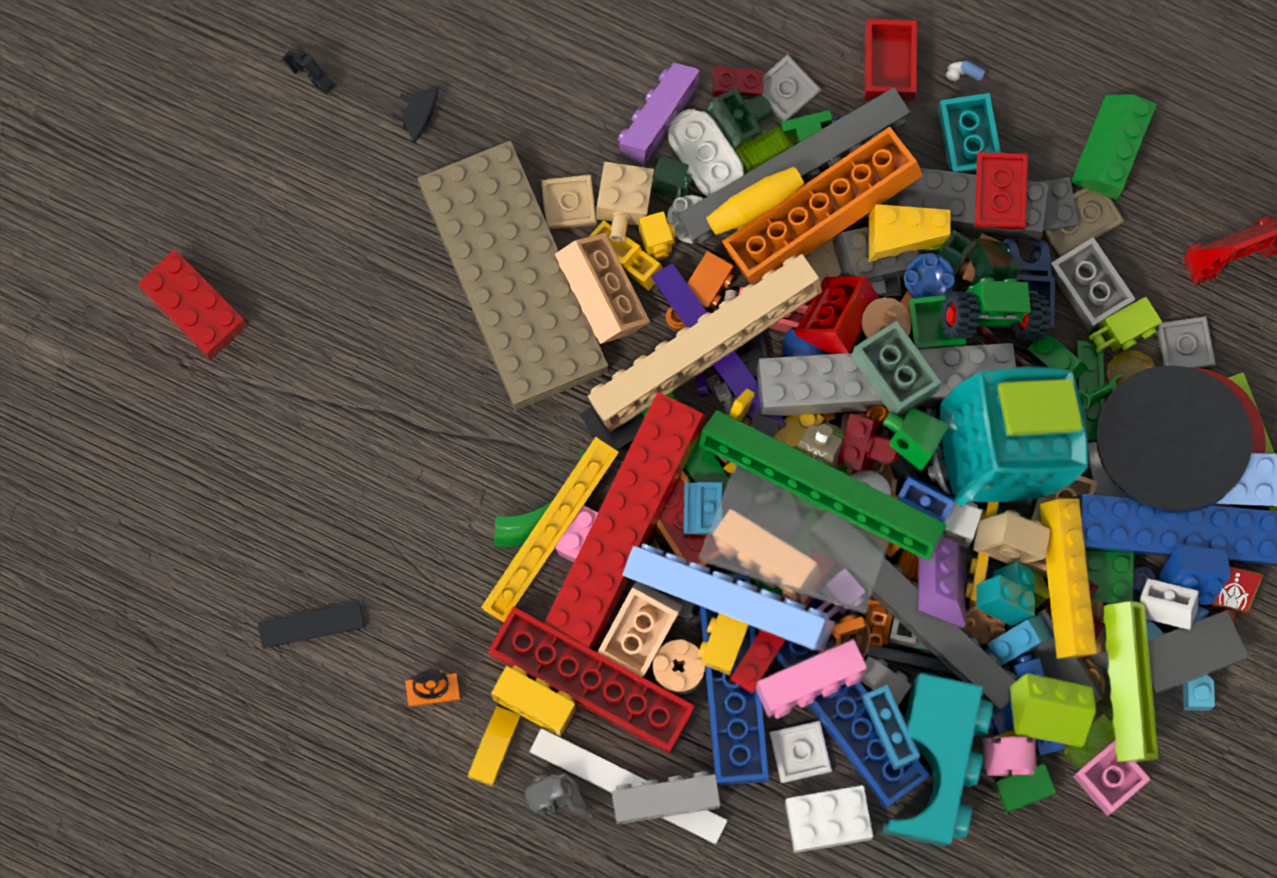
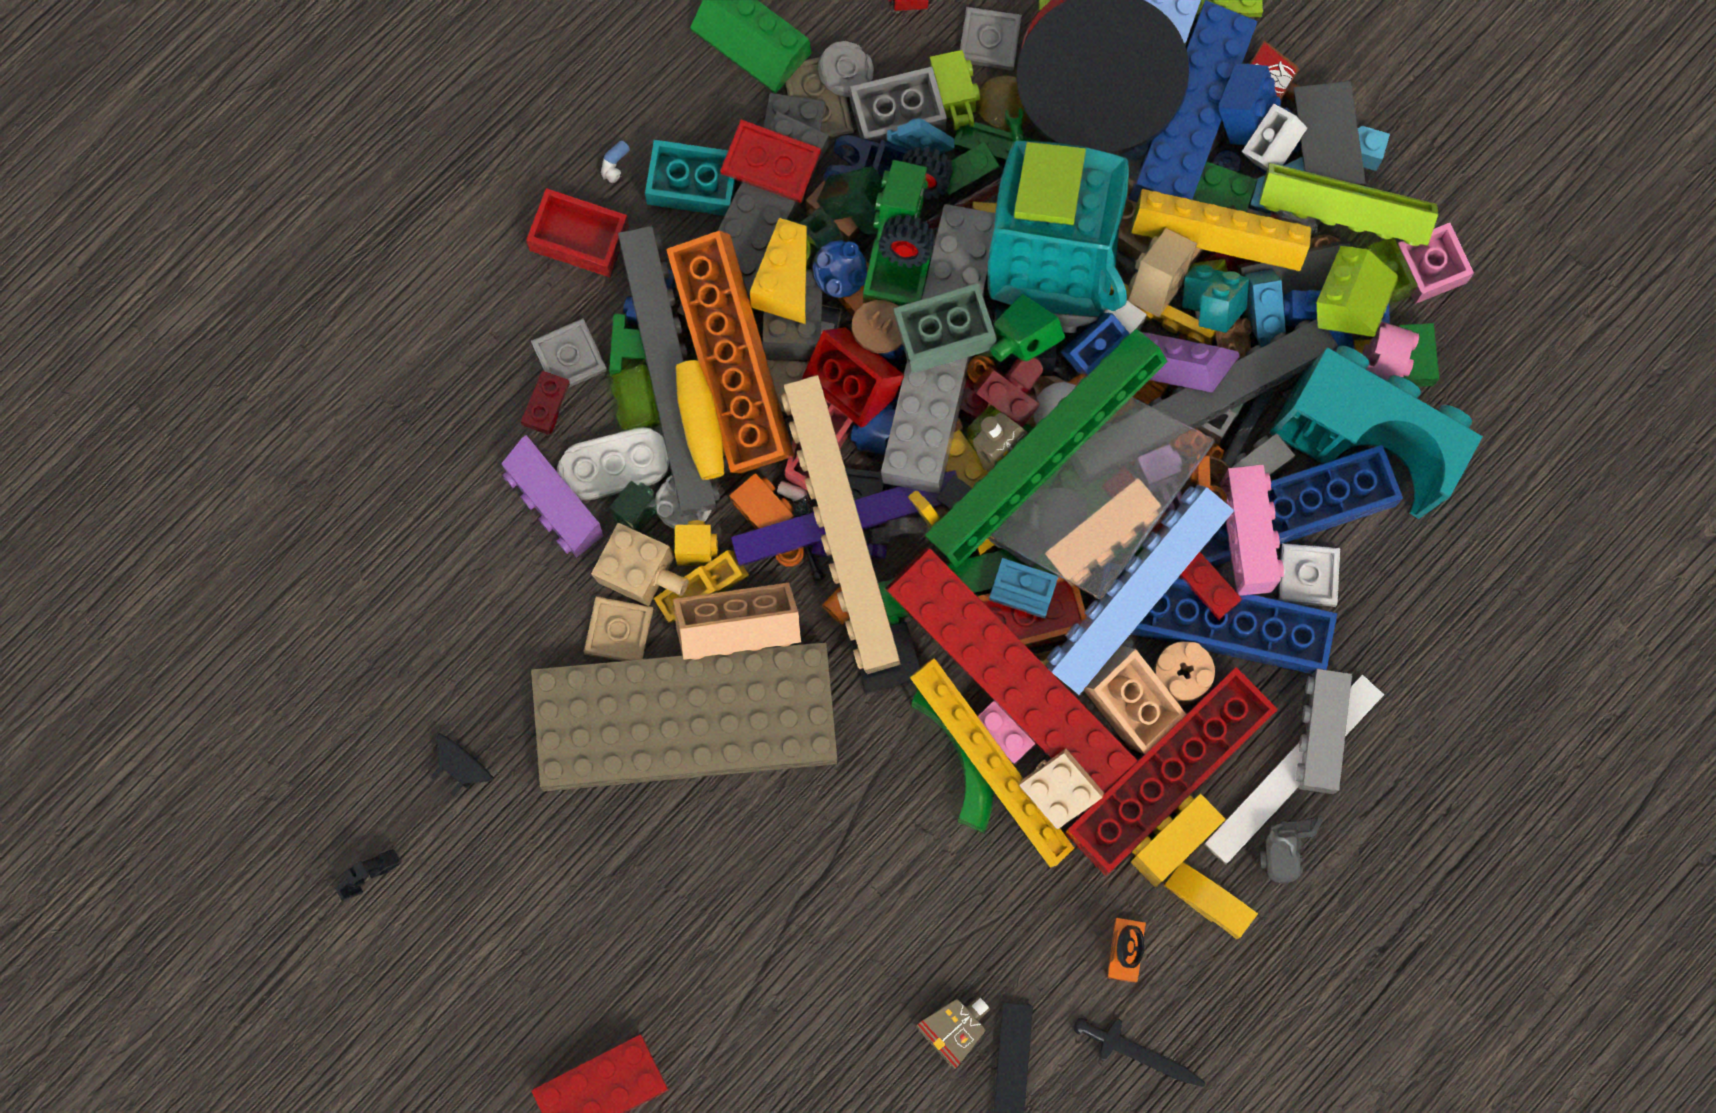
camera: 75 degrees left, 0 degrees up
(323, 569) = (955, 1029): none -> dark tan torso
(354, 701) = (1112, 1041): none -> black sword
(545, 591) = (1061, 788): none -> tan plate
(723, 643) = (1182, 614): yellow brick -> none
(739, 117) = (586, 414): clear green brick -> none
(828, 819) = (1393, 567): white brick -> none
(890, 727) = (1326, 465): dark azure brick -> none
(1068, 310) = (920, 134): none -> dark azure plate
(1114, 231) = (844, 66): none -> light grey tile

